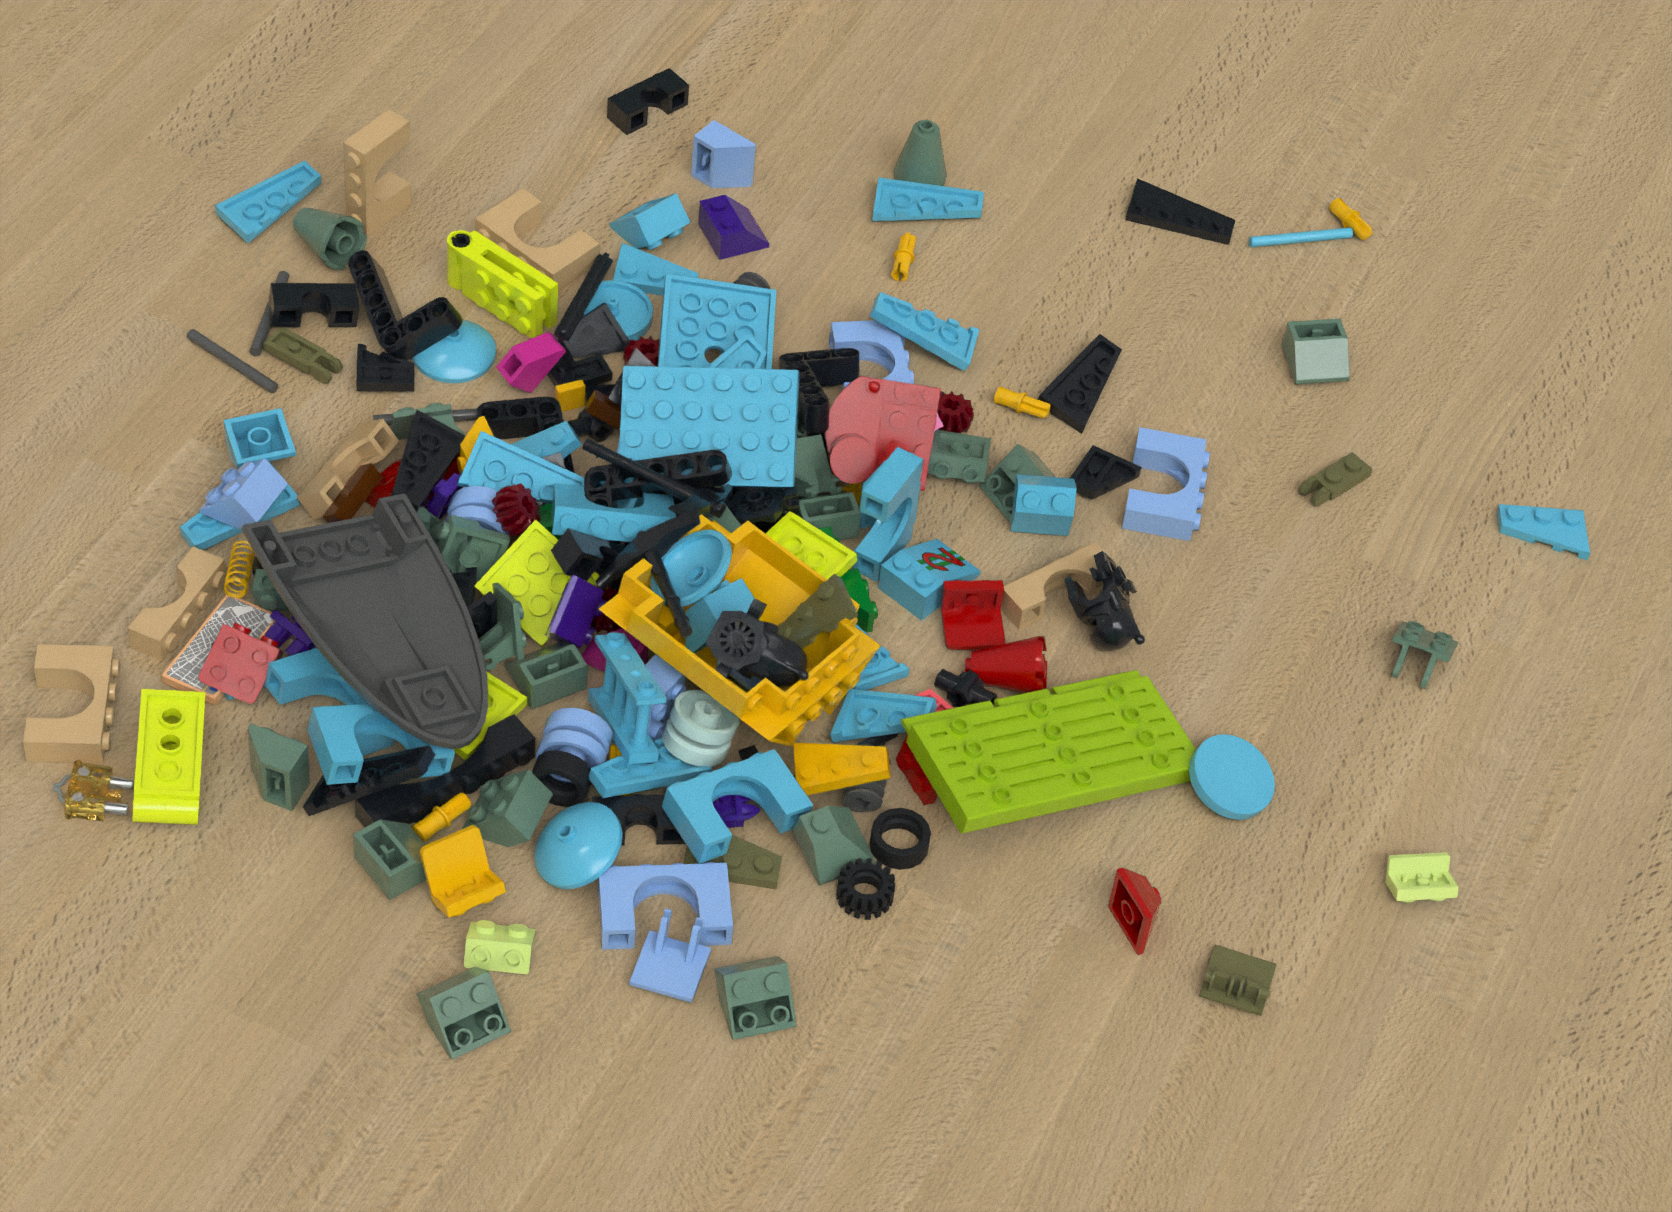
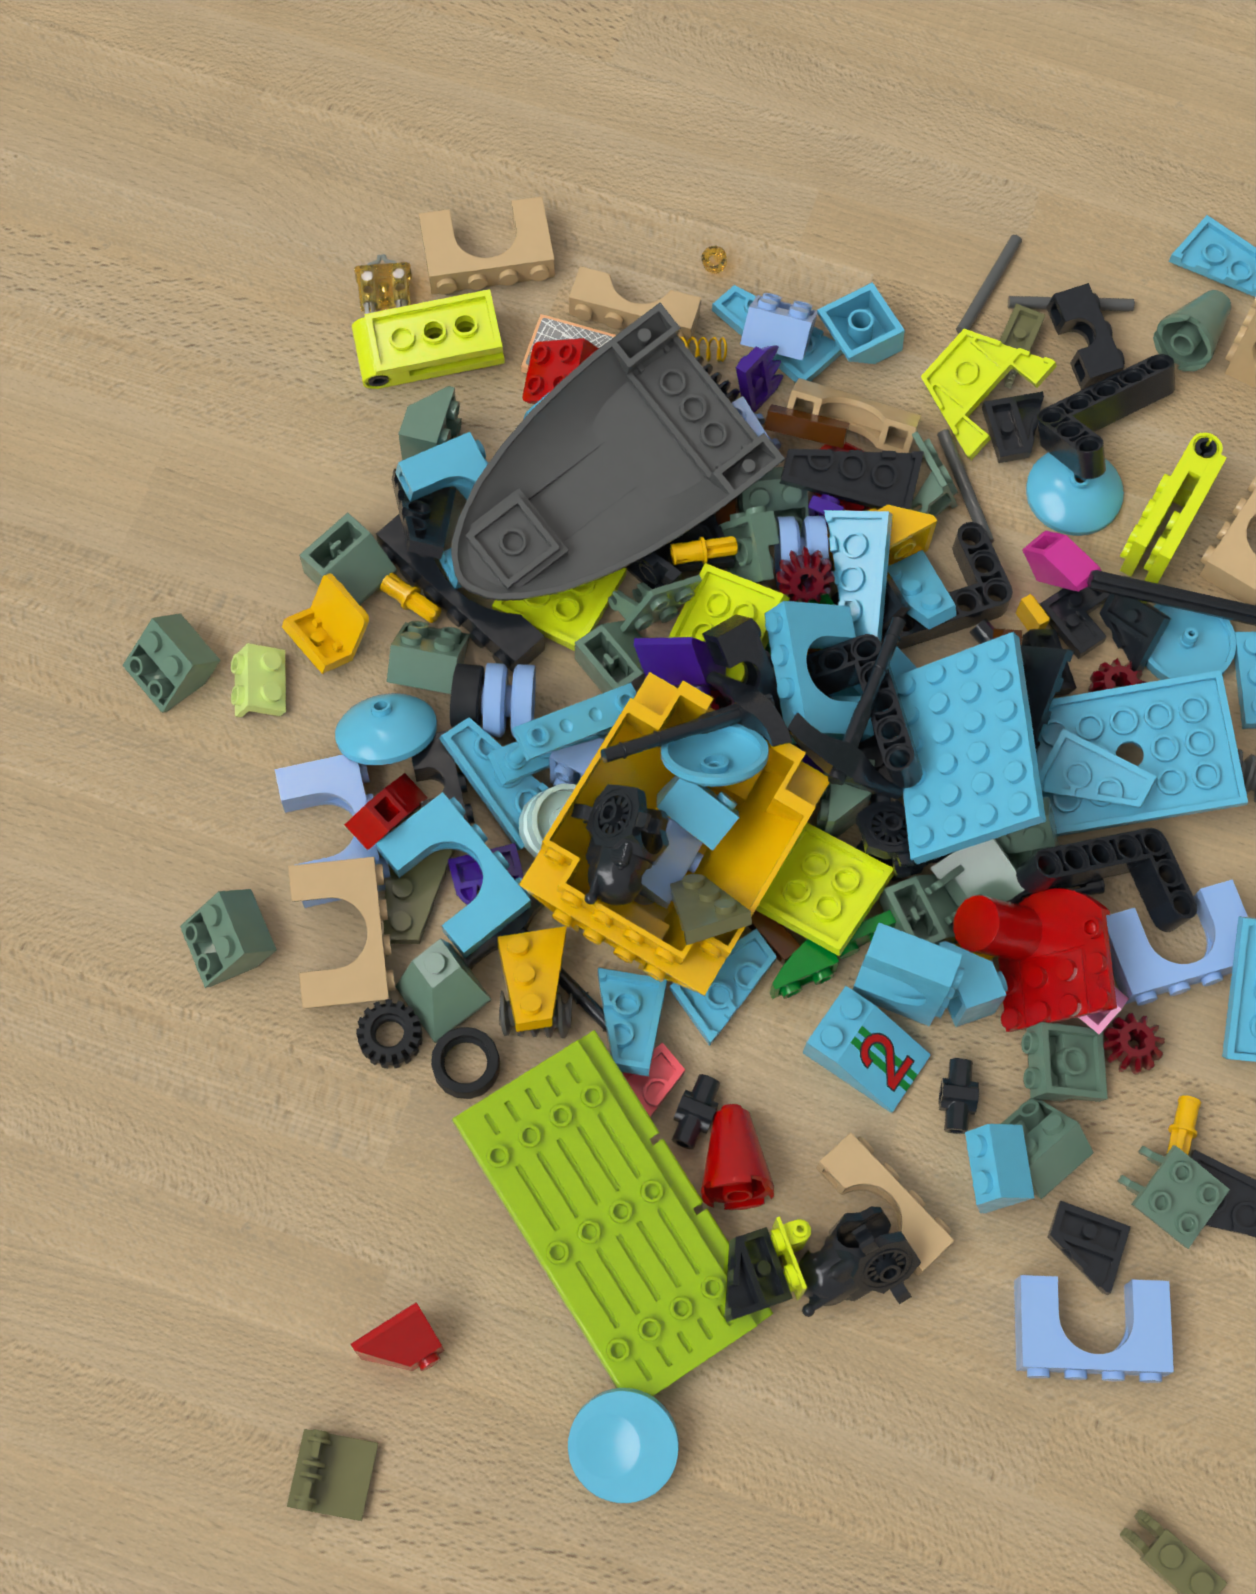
camera: 85 degrees right, 20 degrees up
(142, 534) = (720, 257): none -> clear yellow hinge
(287, 515) = (757, 375): none -> dark purple plate
(328, 387) = (967, 375): none -> neon yellow wing
(465, 577) = (703, 549): none -> yellow axle
(670, 964) = (259, 848): light blue plate -> none
(671, 842) = (385, 811): none -> red slope
(810, 891) = (367, 975): none -> tan arch
(972, 614) = (807, 1108): red bracket -> none
(975, 525) = (958, 1096): none -> black axle
(1075, 407) = (1178, 1195): none -> sand green plate
(1097, 642) = (786, 1240): none -> neon yellow hinge
(1110, 665) = (753, 1275): none -> black wing

